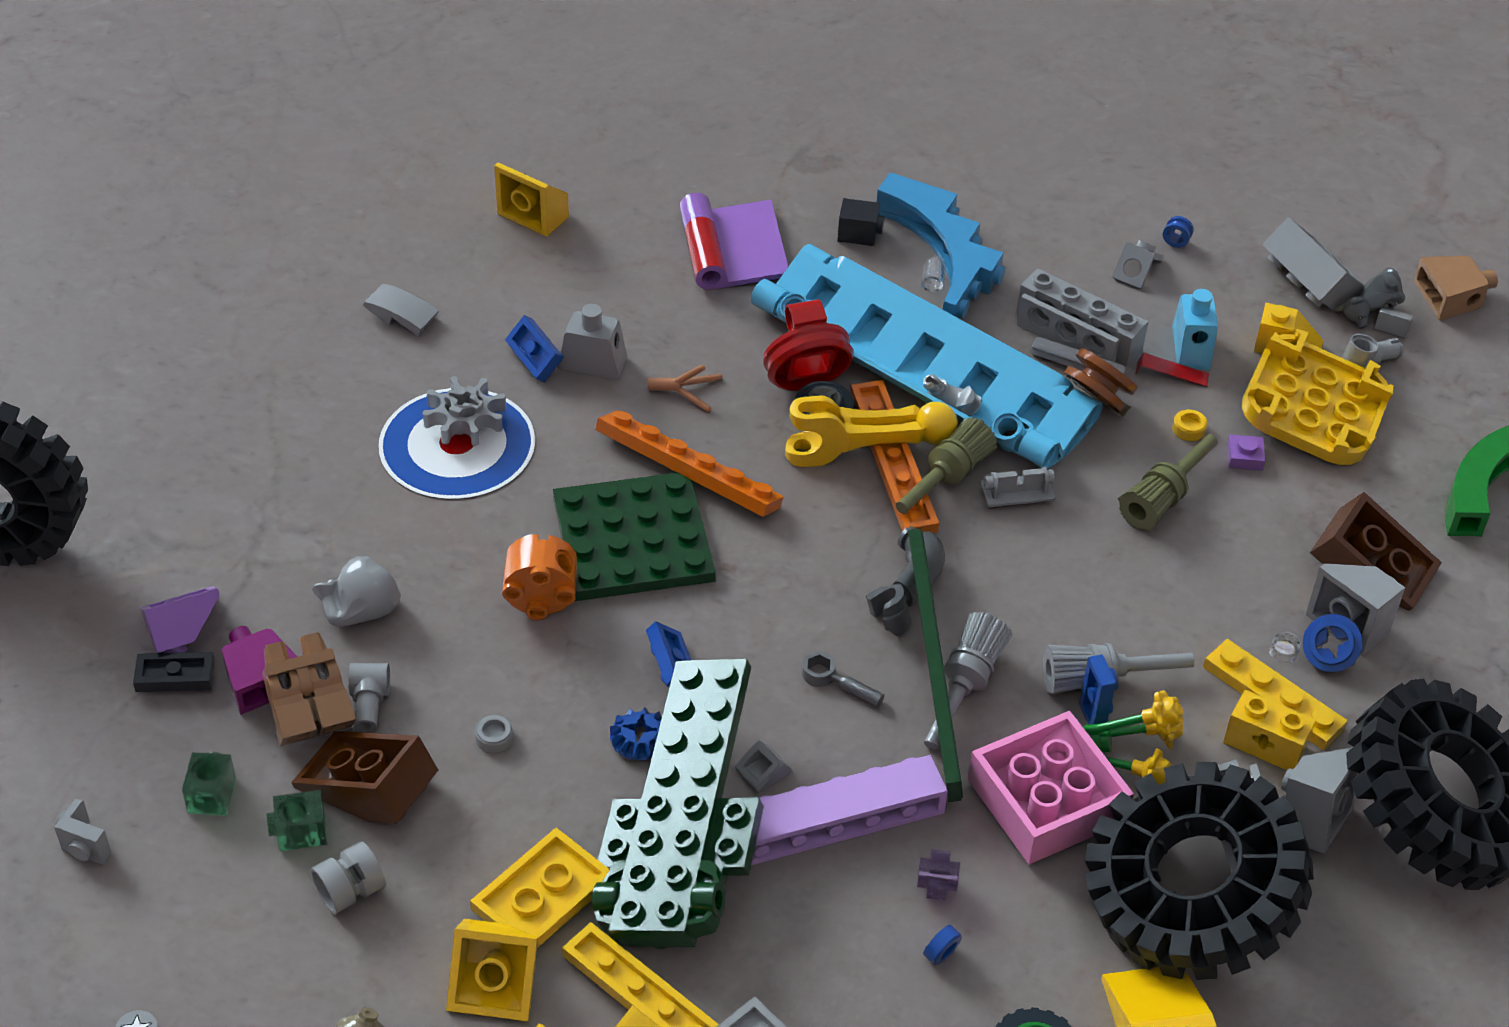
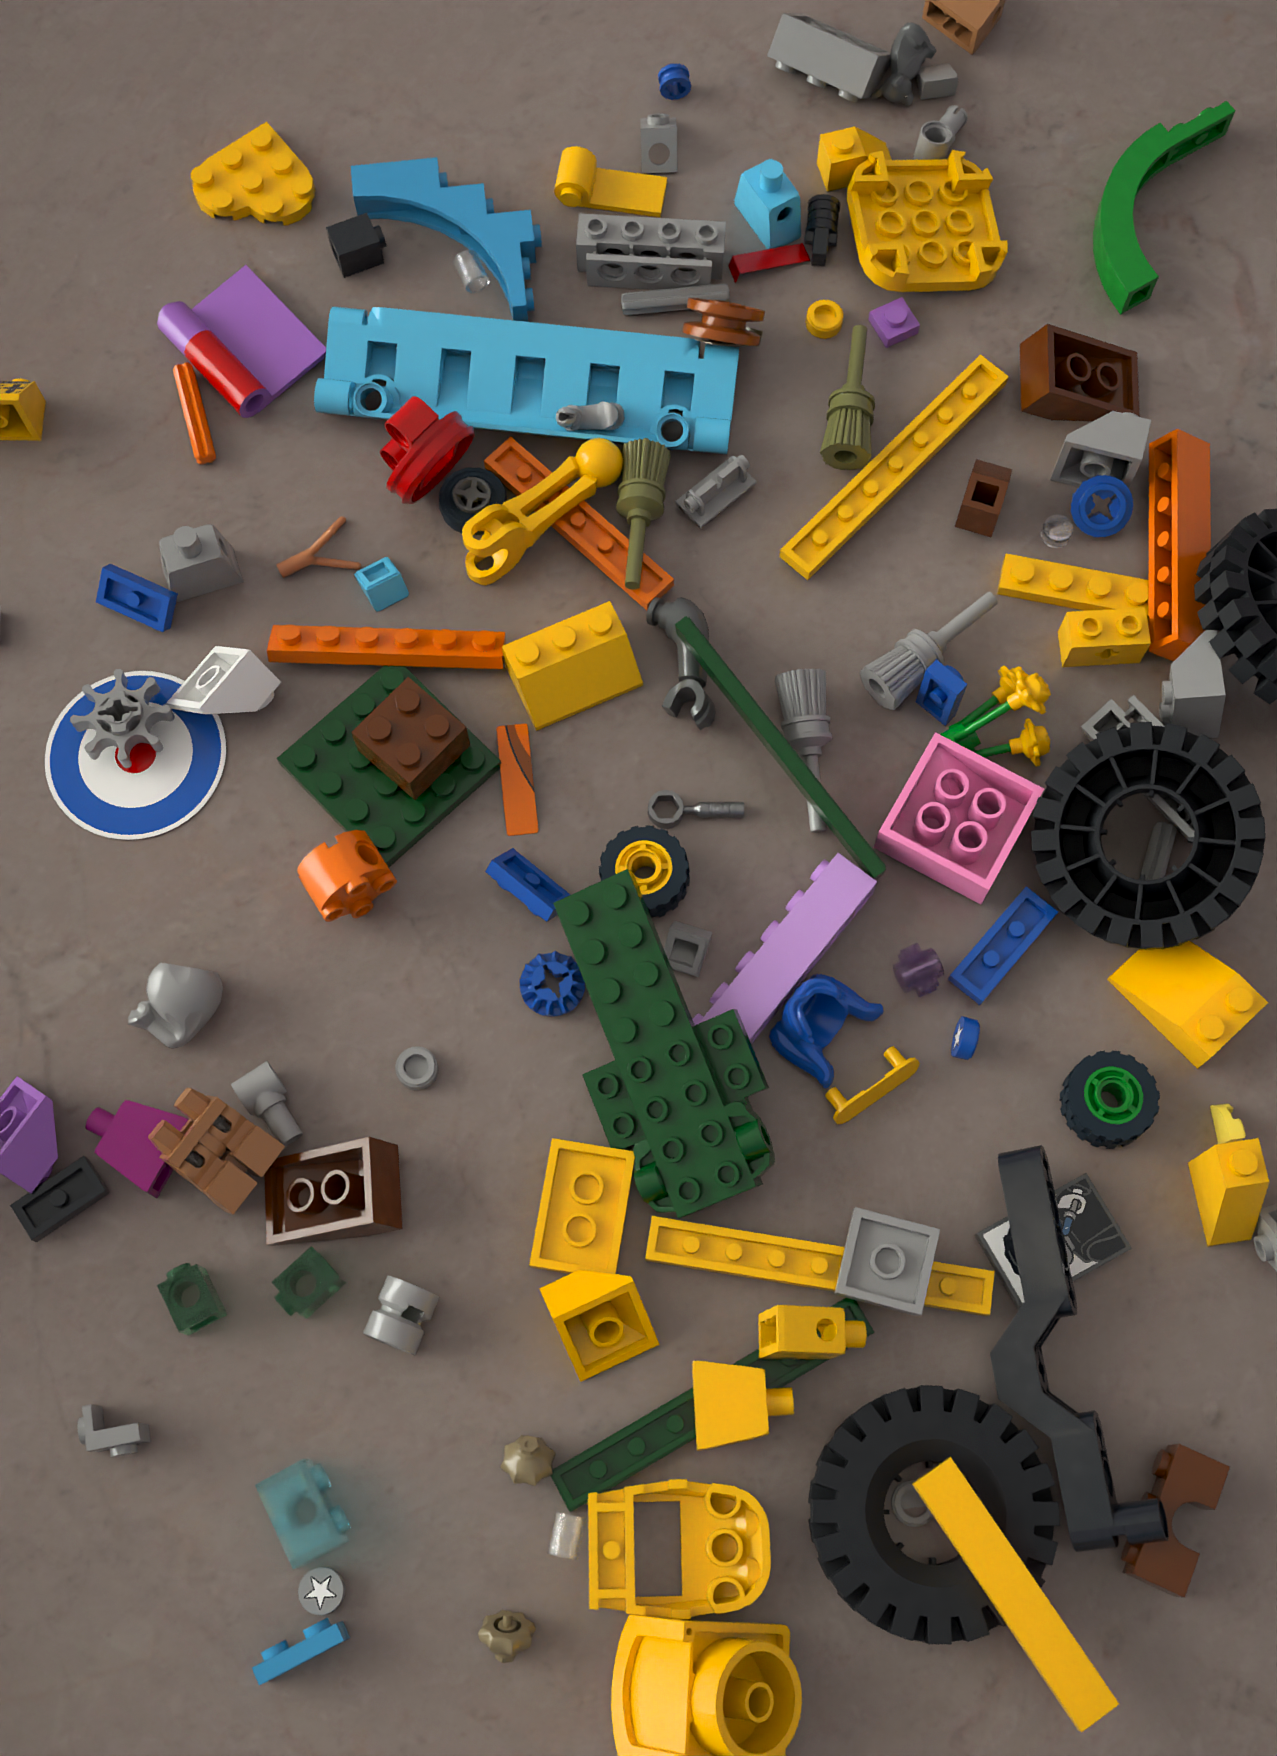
camera: 30 degrees left, 25 degrees up
(167, 945) = (282, 1495): none -> clear light blue brick
(555, 429) = (226, 683): none -> white slope
(656, 515) = (411, 738): none -> reddish brown piece
(664, 267) = (194, 413): none -> orange axle
(716, 427) = (382, 584): none -> medium azure slope
(718, 594) = (517, 779): none -> orange sticker
(774, 698) = (656, 850): none -> black wheel
(817, 538) = (572, 665): none -> yellow slope
(818, 158) = (255, 178): none -> yellow plate
(828, 858) = (813, 1020): none -> blue hair
(840, 942) = (848, 1109): none -> yellow piece
(1024, 899) = (1002, 945): none -> blue plate
(1061, 259) = (587, 186): none -> yellow door
(1174, 539) = (893, 467): none -> yellow plate
(1229, 366) = (822, 226): none -> black hinge
(1232, 590) = (983, 498): none -> reddish brown slope
(1413, 653) = (1177, 539): none -> orange brick

